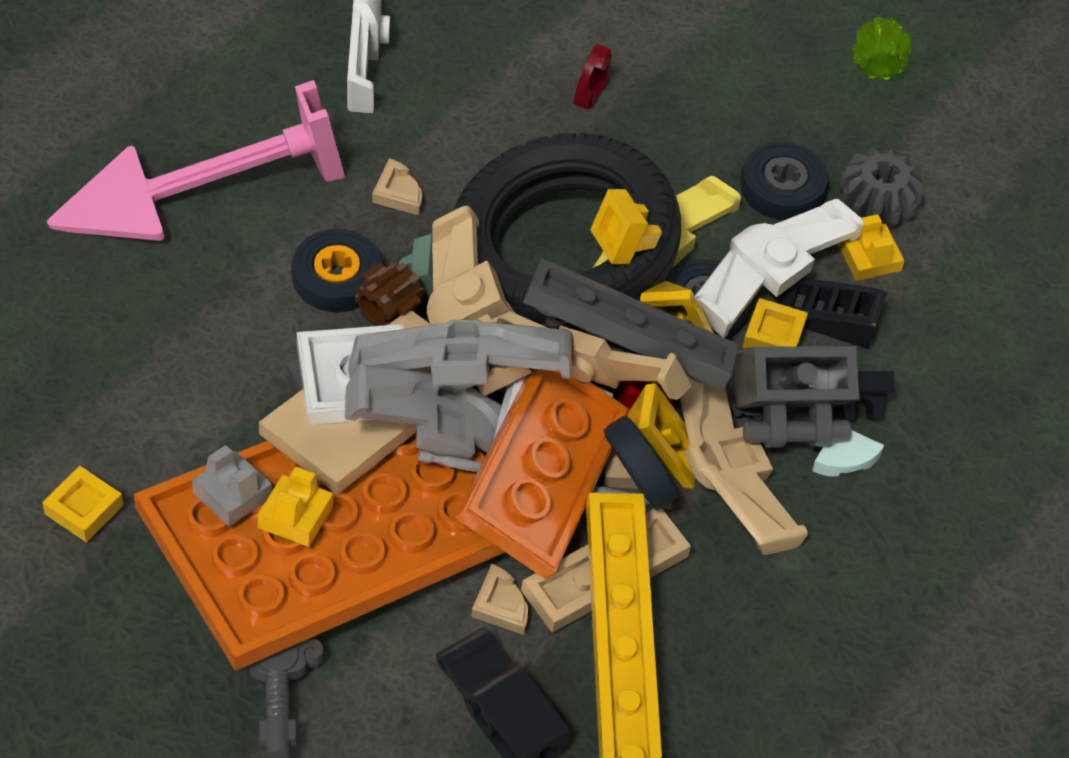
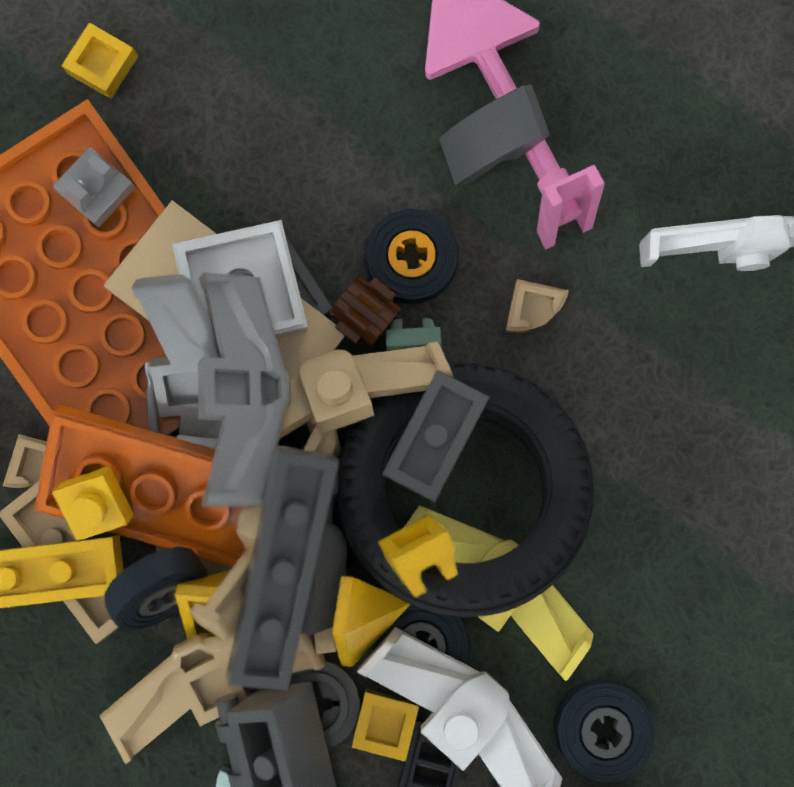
camera: 90 degrees right, 30 degrees up
(238, 182) = (494, 134): none -> dark grey slope
(296, 507) = (72, 250): yellow tile -> none
(522, 217) = (435, 436): none -> dark grey plate
(555, 502) = (93, 503): none -> yellow plate
(594, 77) = (710, 501): dark red tile -> none

